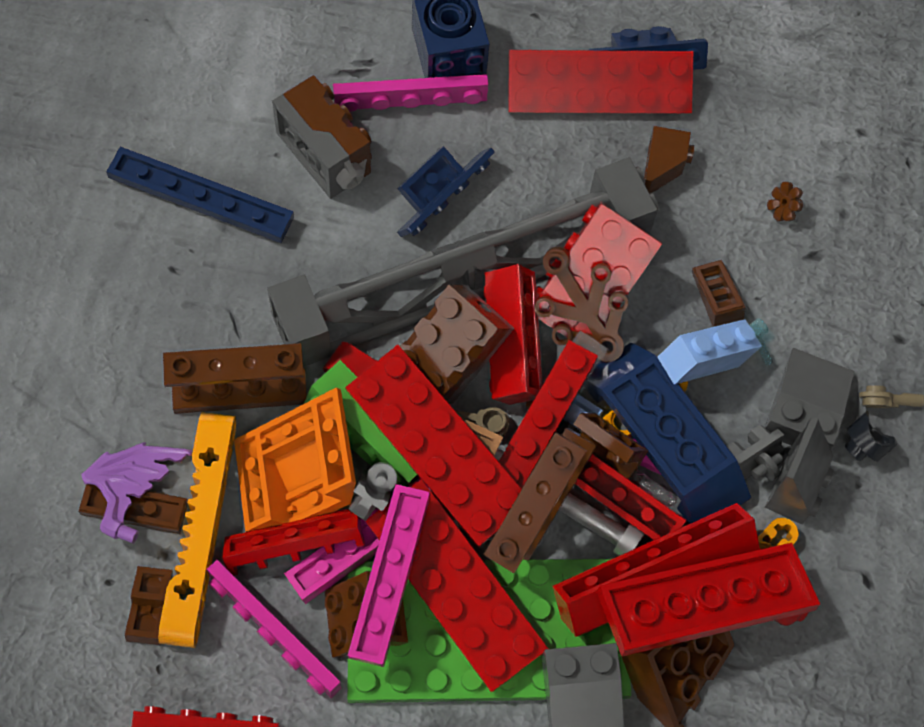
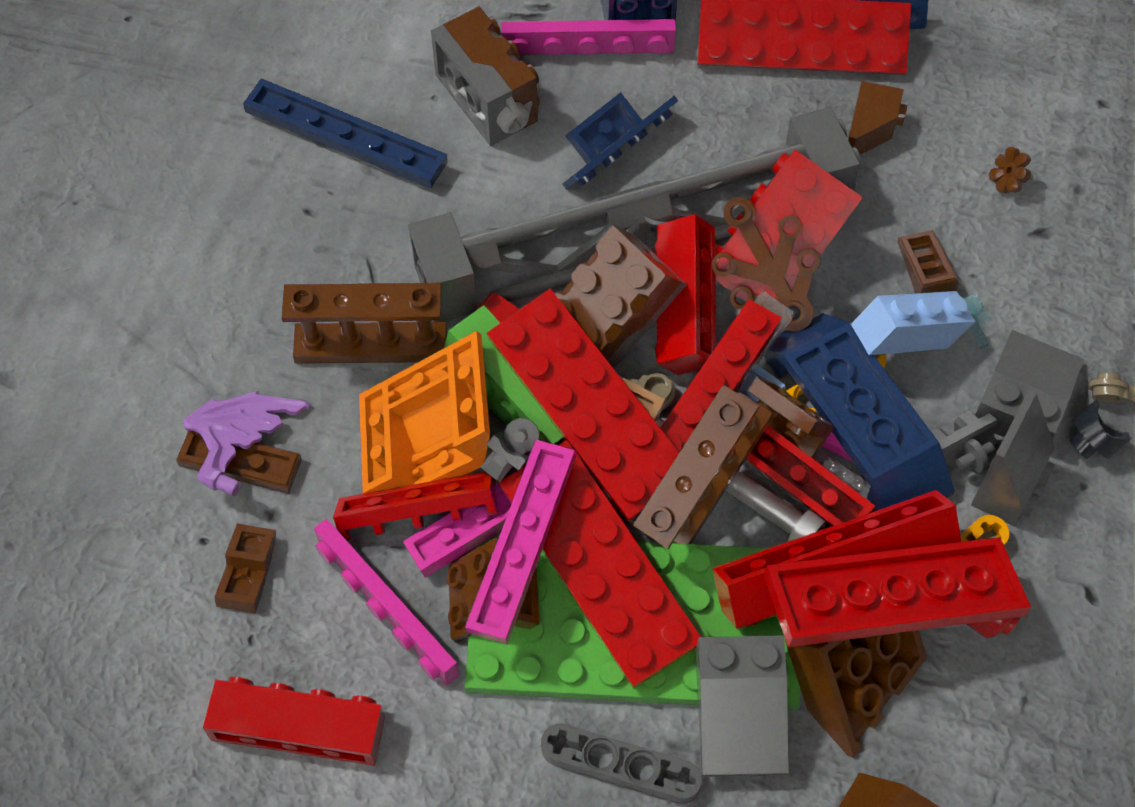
camera: 10 degrees right, 5 degrees down
(183, 618) = (332, 409): light orange gear -> none

